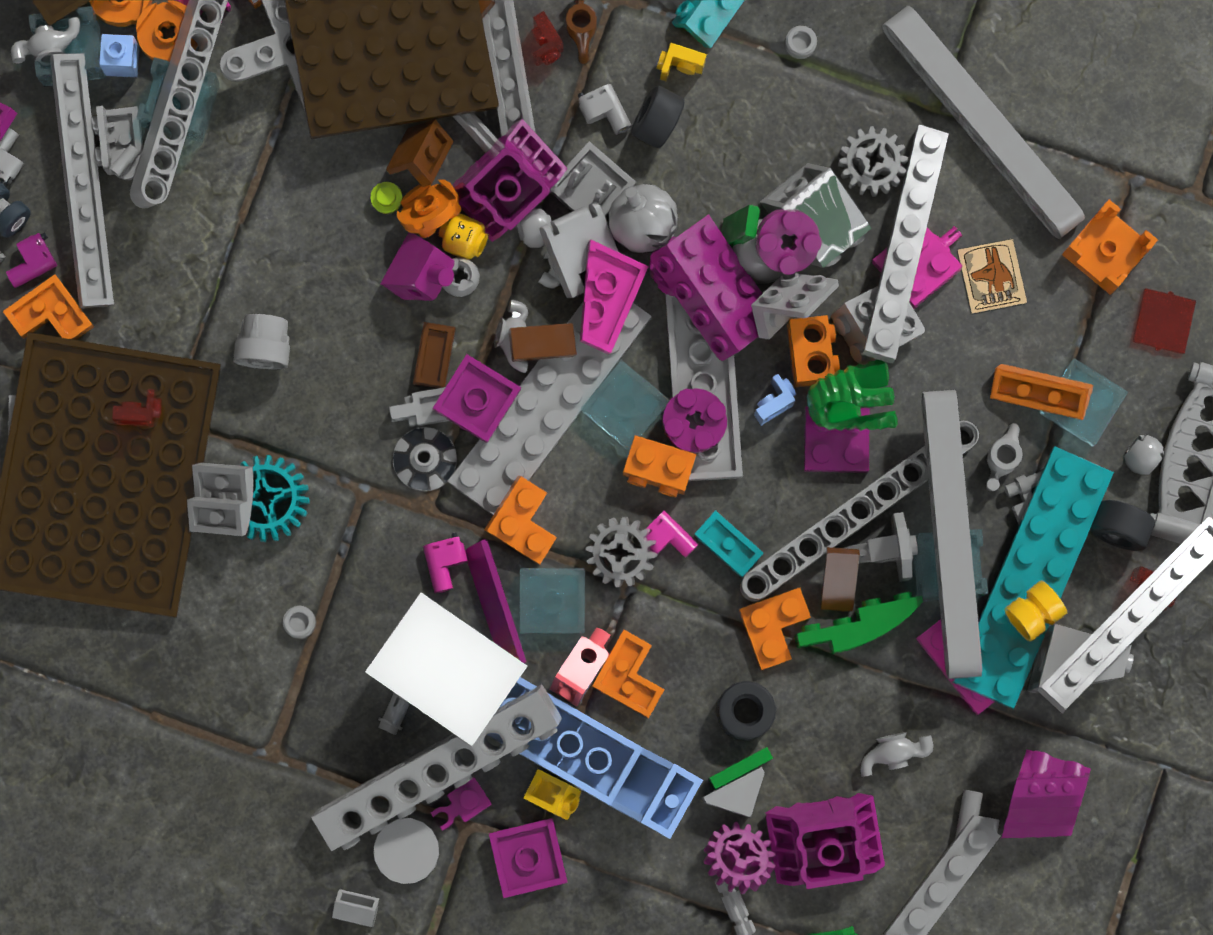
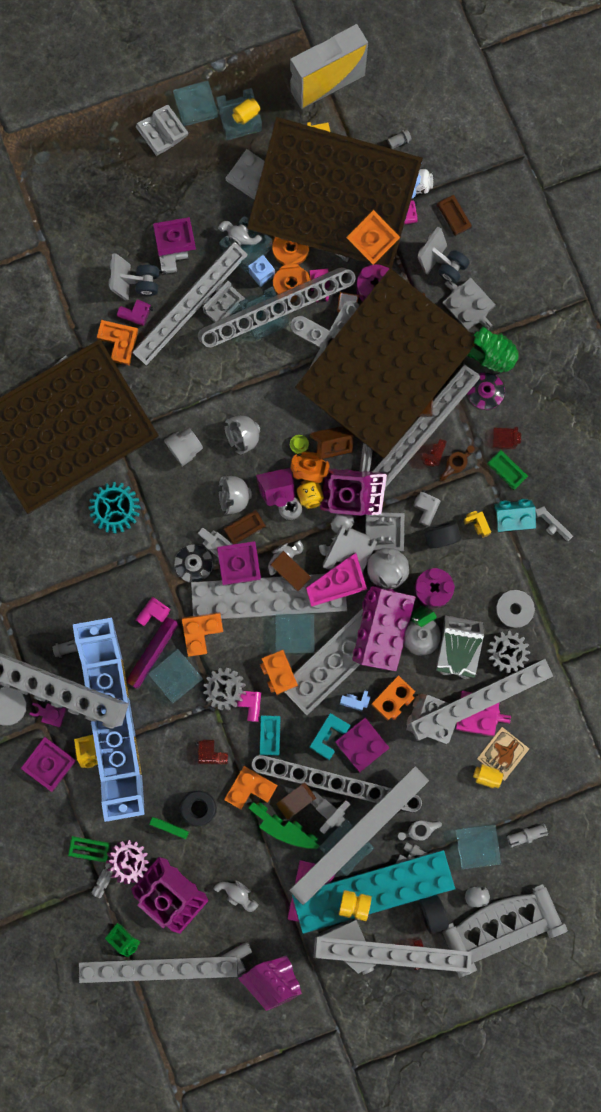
camera: 55 degrees right, 0 degrees up
(125, 162) = (213, 315): light grey plate -> none
(132, 414) = (101, 416): clear red bracket -> none
(221, 499) = (95, 488): light grey slope -> none
(299, 622) = (71, 570): light grey tile -> none
(311, 256) = (242, 433): none -> light grey cylinder
(381, 333) = (234, 494): none -> light grey cylinder
(446, 669) = (98, 654): white sticker -> none
(575, 674) = (147, 715): torso -> none
(619, 676) = (165, 737): orange plate -> none
(659, 913) = (90, 841): none -> green tile
(686, 643) = (207, 753): none -> clear red piece
(688, 403) = (323, 676): magenta plate -> none
(721, 167) = (441, 580): none -> magenta brick
(738, 795) = (156, 837): light grey slope -> none
(784, 471) = (324, 734): none -> teal panel
(790, 297) = (407, 668): light grey bracket -> none
(801, 42) = (537, 571): light grey tile -> none
(806, 241) = (424, 651): magenta plate -> none
(828, 91) = (526, 609): none -> light grey tile
(837, 398) = (380, 731): green hair -> none
(983, 122) = (572, 688): light grey beam -> none
(1006, 316) = (488, 776): none -> yellow brick
(1041, 391) = (466, 822): orange slope -> none
(1108, 248) = (563, 797): orange panel -> none
(1118, 331) = (527, 835): none -> light grey pin
(1164, 321) = (551, 853): clear red piece -> none

